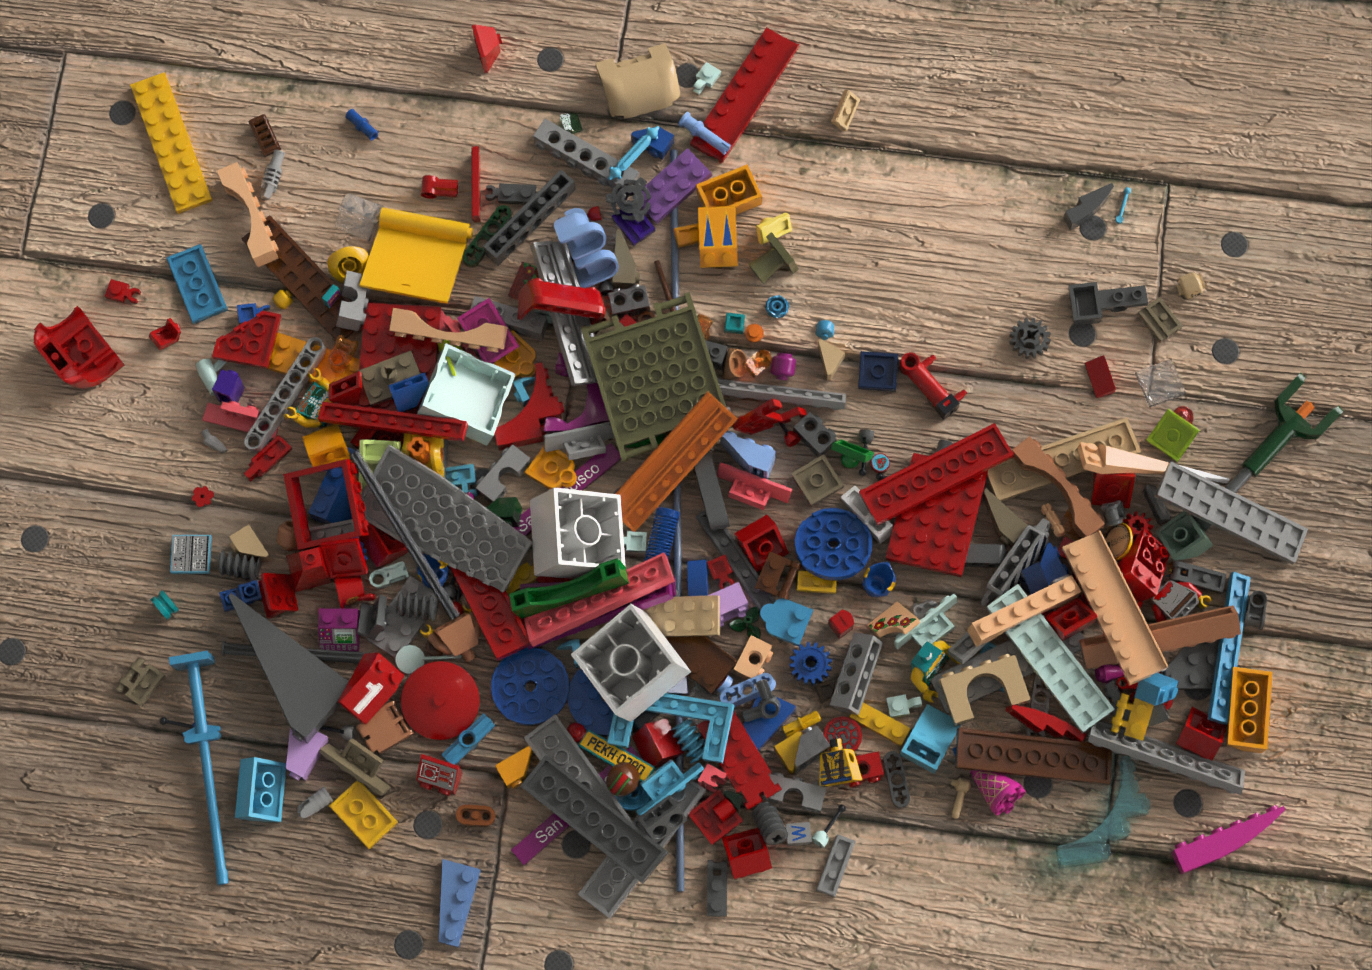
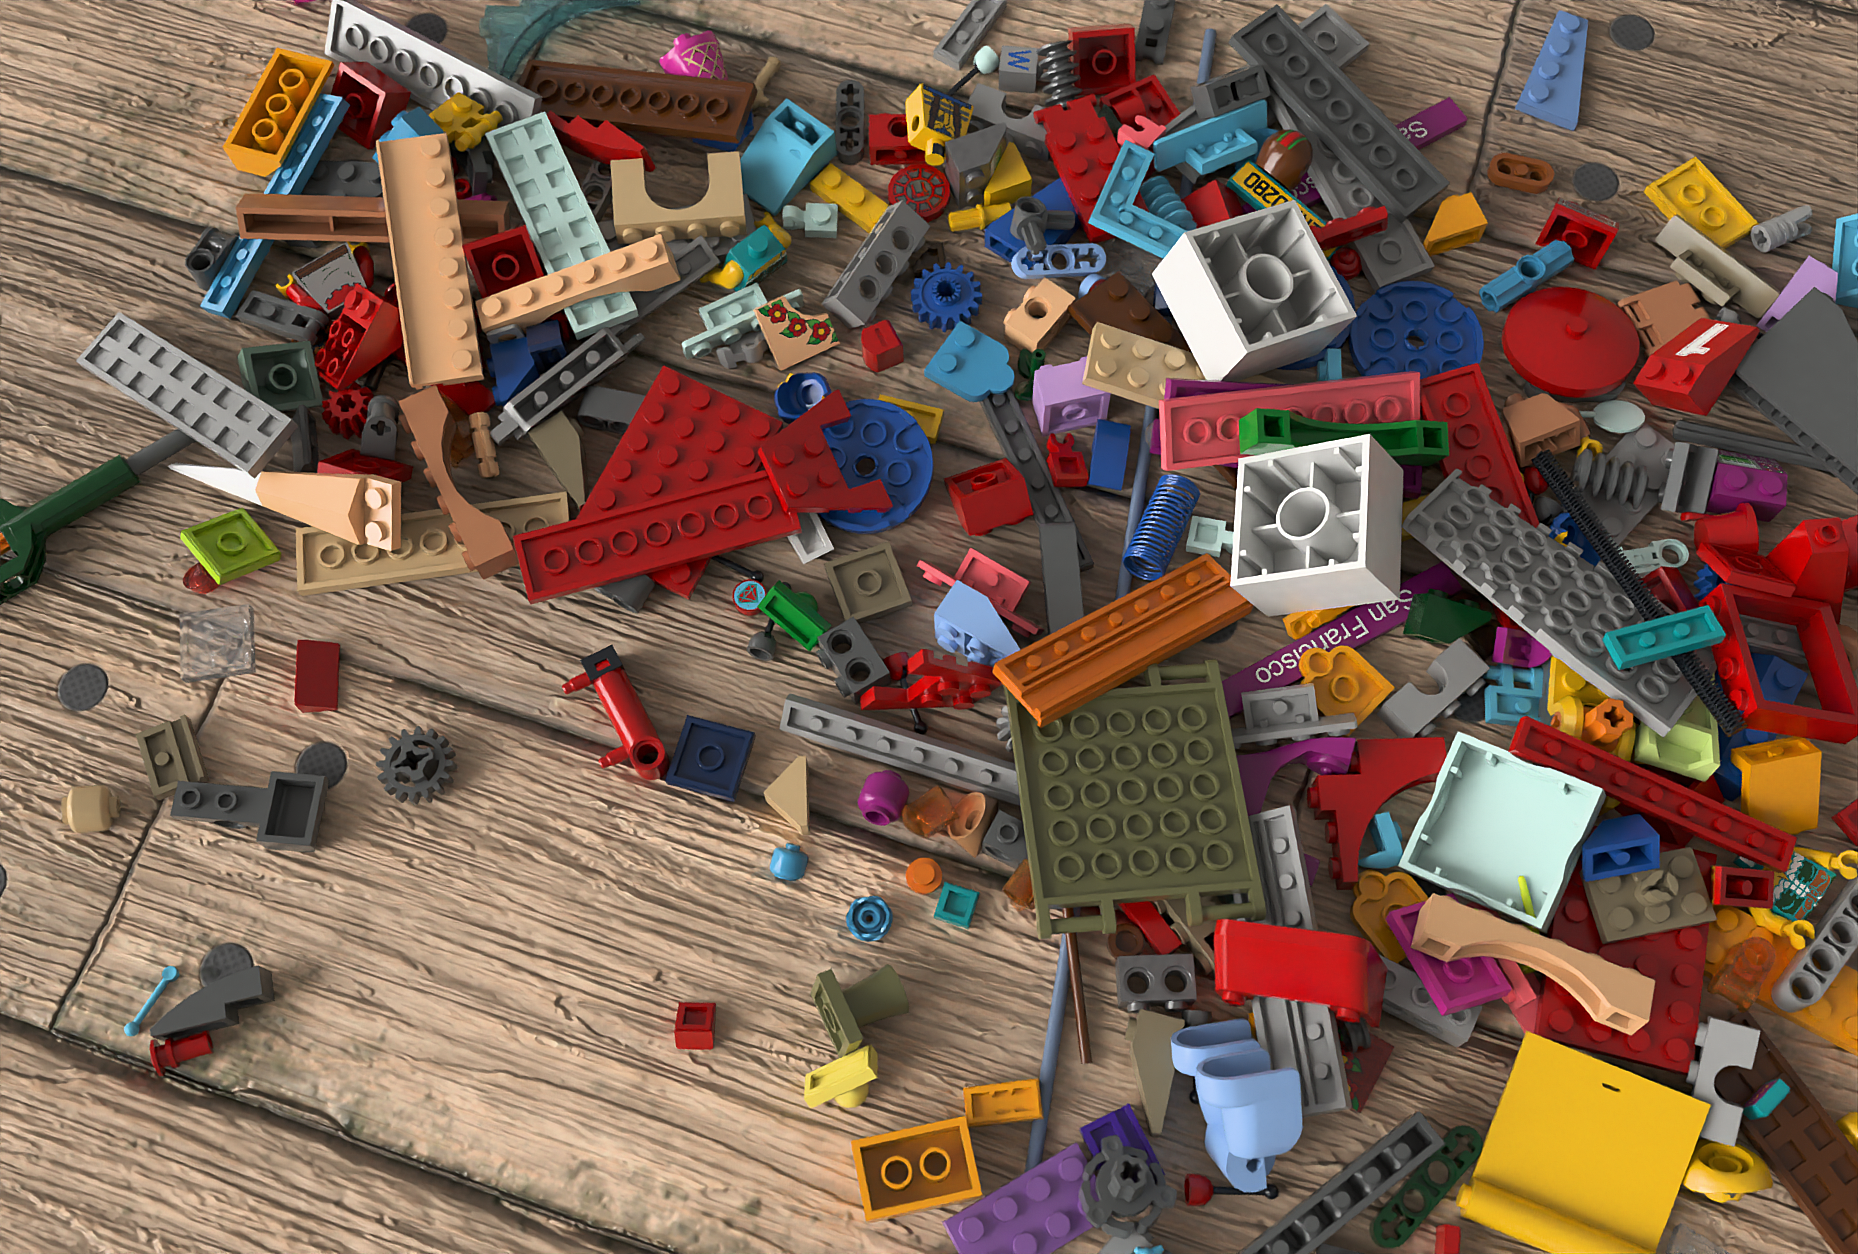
camera: 170 degrees left, 5 degrees down
(392, 494) = (1663, 637): none -> teal plate
(583, 737) = (1343, 231): none -> red hinge
(717, 236) = (958, 1070): light orange slope -> none
(771, 574) = (979, 440): reddish brown plate -> none
(851, 244) = (695, 1025): none -> red slope
(864, 523) = (806, 470): none -> red wing
(1101, 181) = (180, 1050): none -> red pin
(1119, 540) = (387, 377): piece -> none

